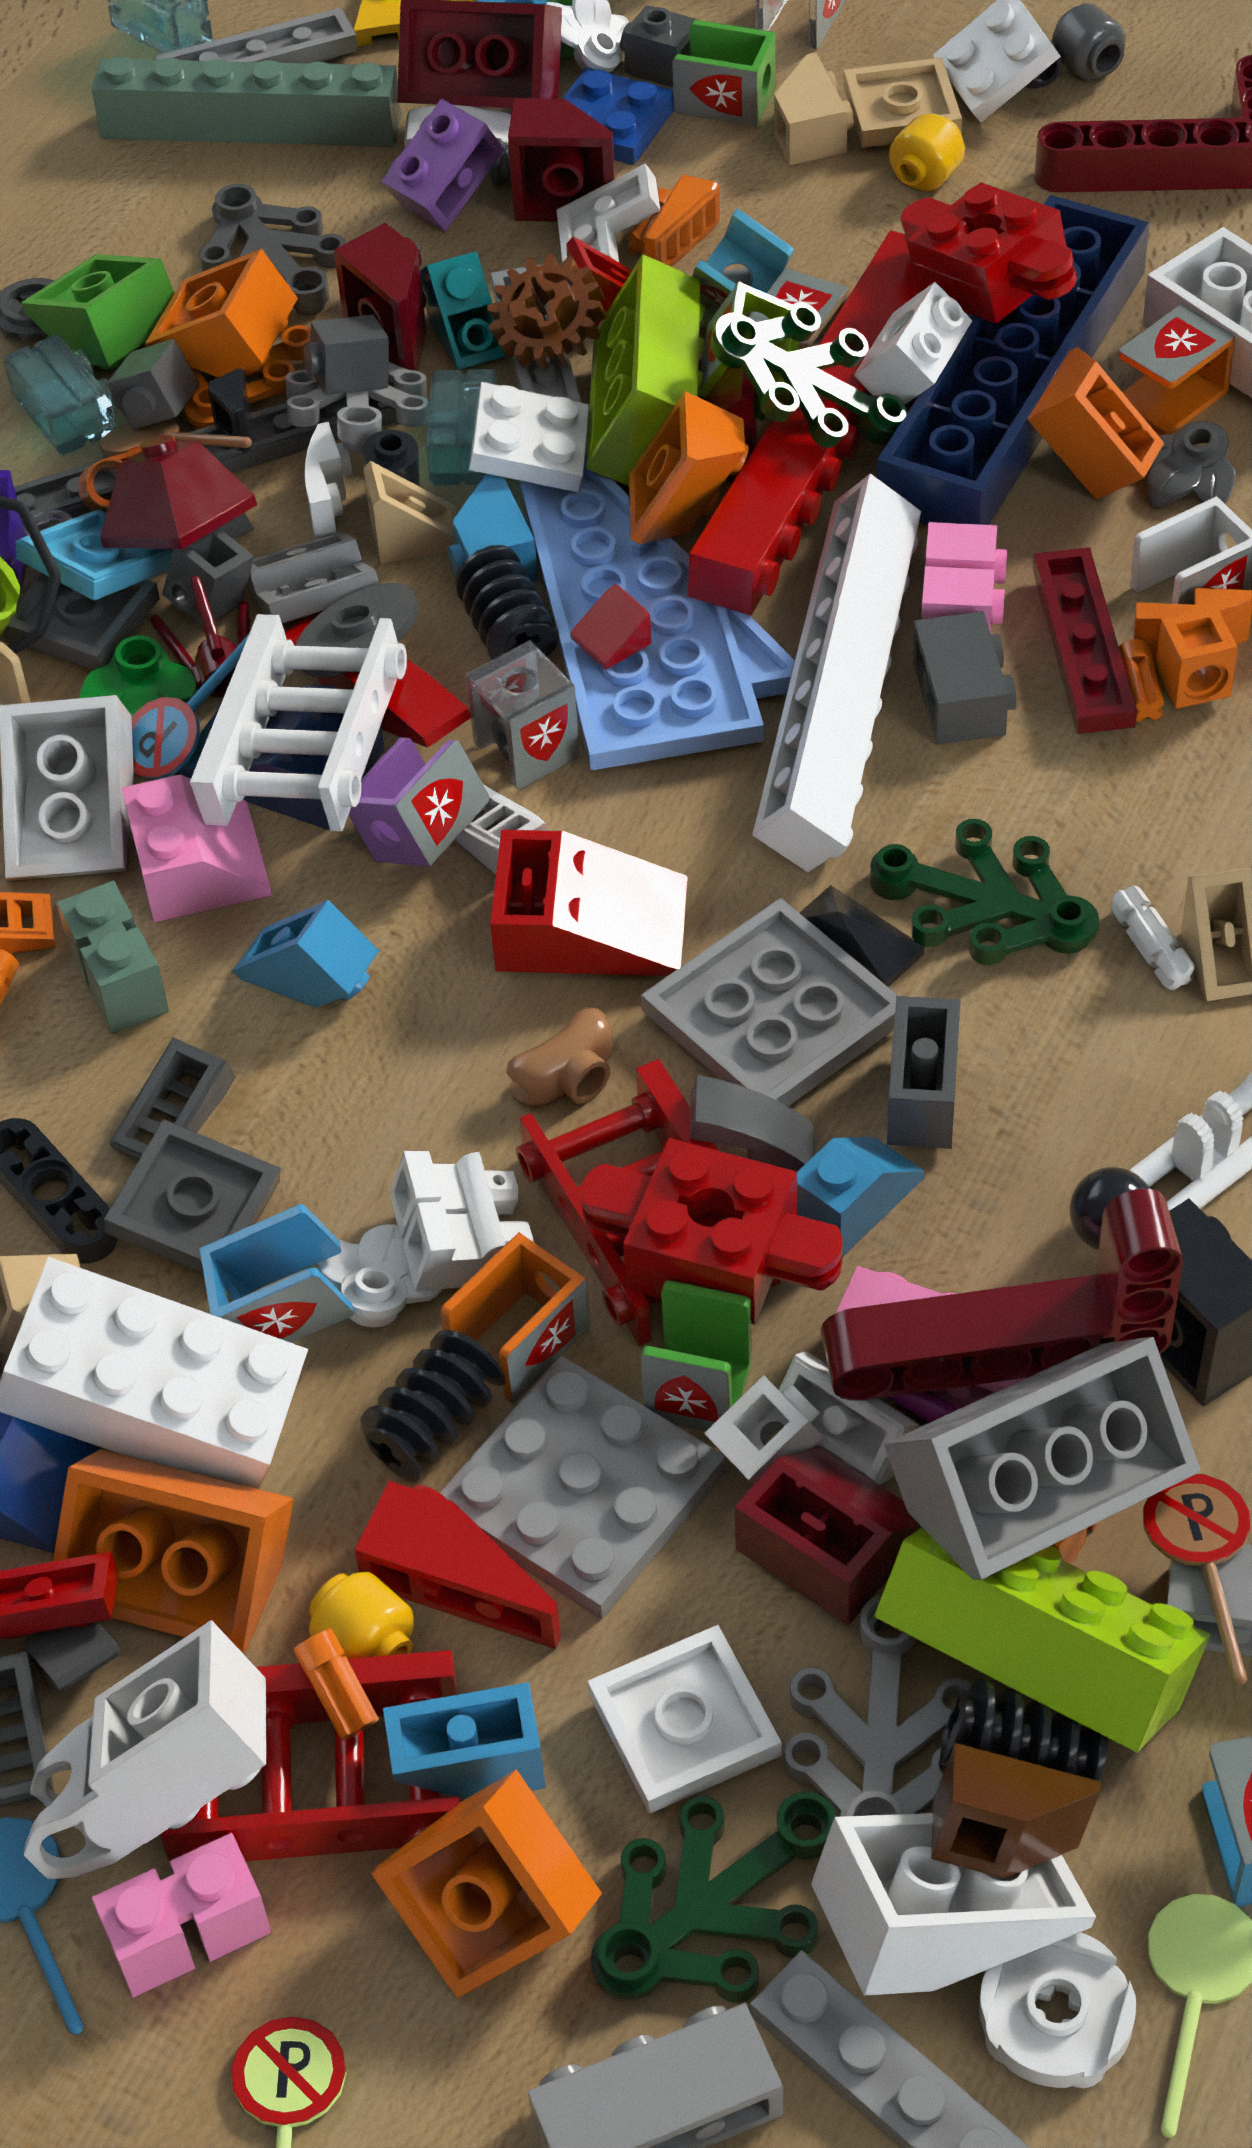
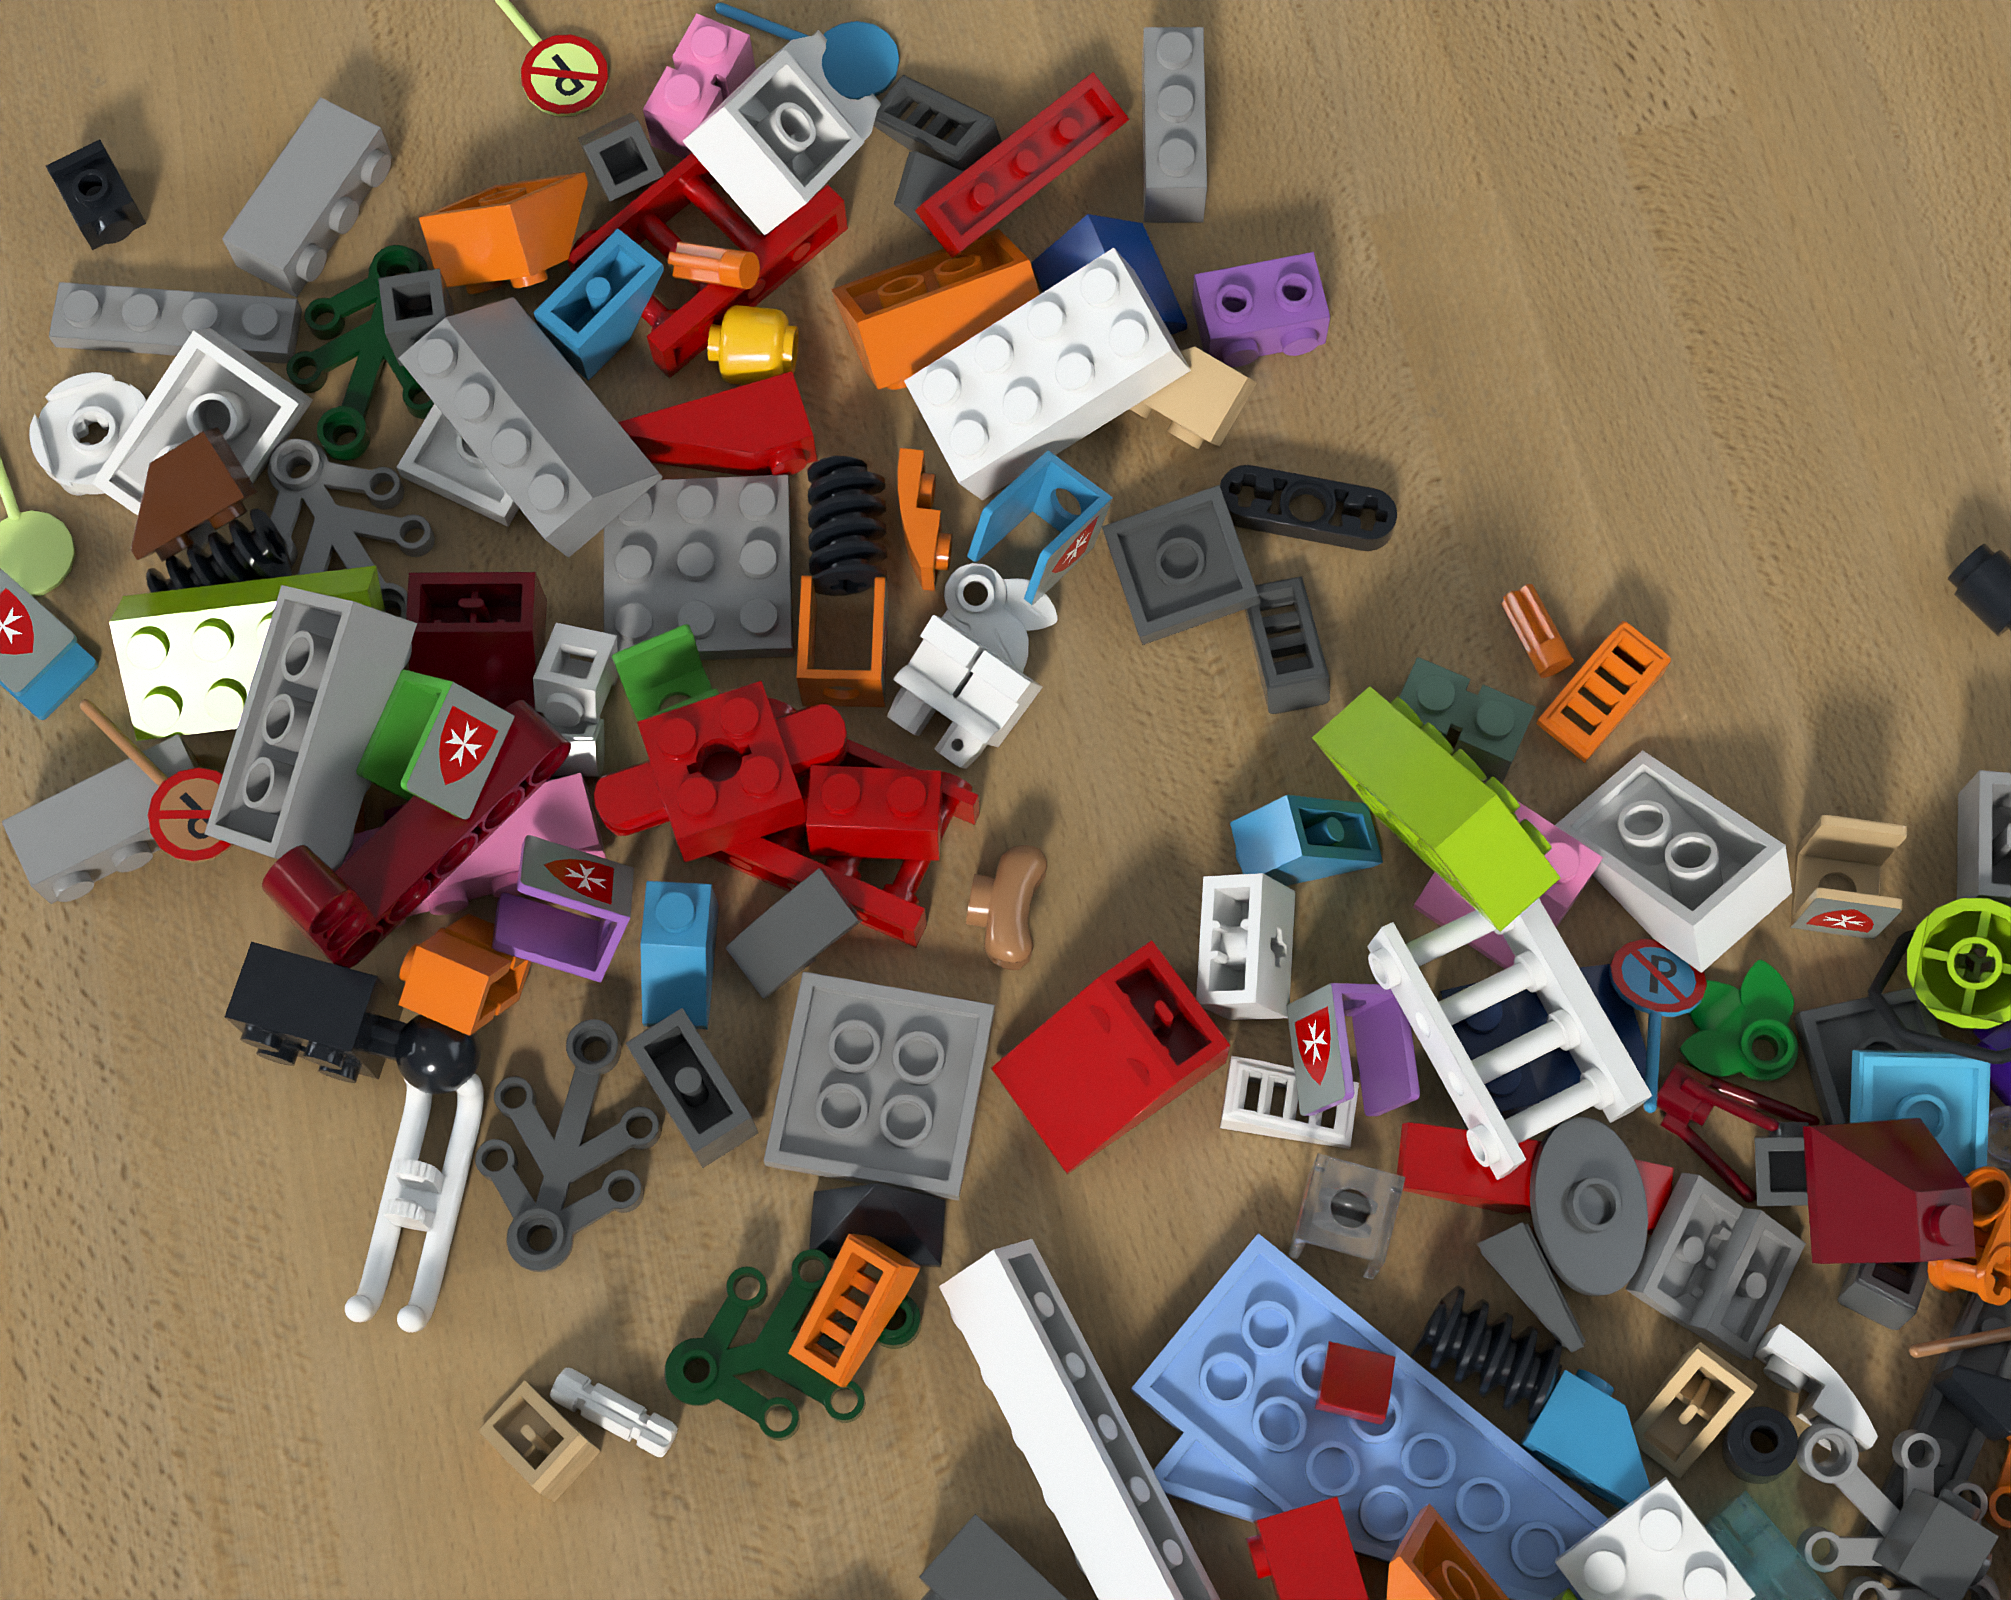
camera: 140 degrees right, 20 degrees up
(208, 842) = (1440, 805): none -> lime brick
(319, 1888) = (620, 156): none -> dark grey brick
(373, 1363) = (921, 524): none -> orange slope
(424, 905) = (1245, 946): none -> white brick
(433, 633) = (1524, 1267): none -> dark grey slope
(603, 1123) = (874, 812): none -> red brick
(627, 1655) = (531, 421): none -> light grey slope
(649, 1840) = (413, 307): none -> dark grey brick
(882, 882) = (872, 1319): none -> orange slope
(890, 1346) = (435, 743): none -> piece
(925, 1236) = (557, 936): none -> medium lavender piece
(1056, 1115) = (565, 1157): none -> dark grey plant
(1058, 1230) = (461, 977): none -> orange piece

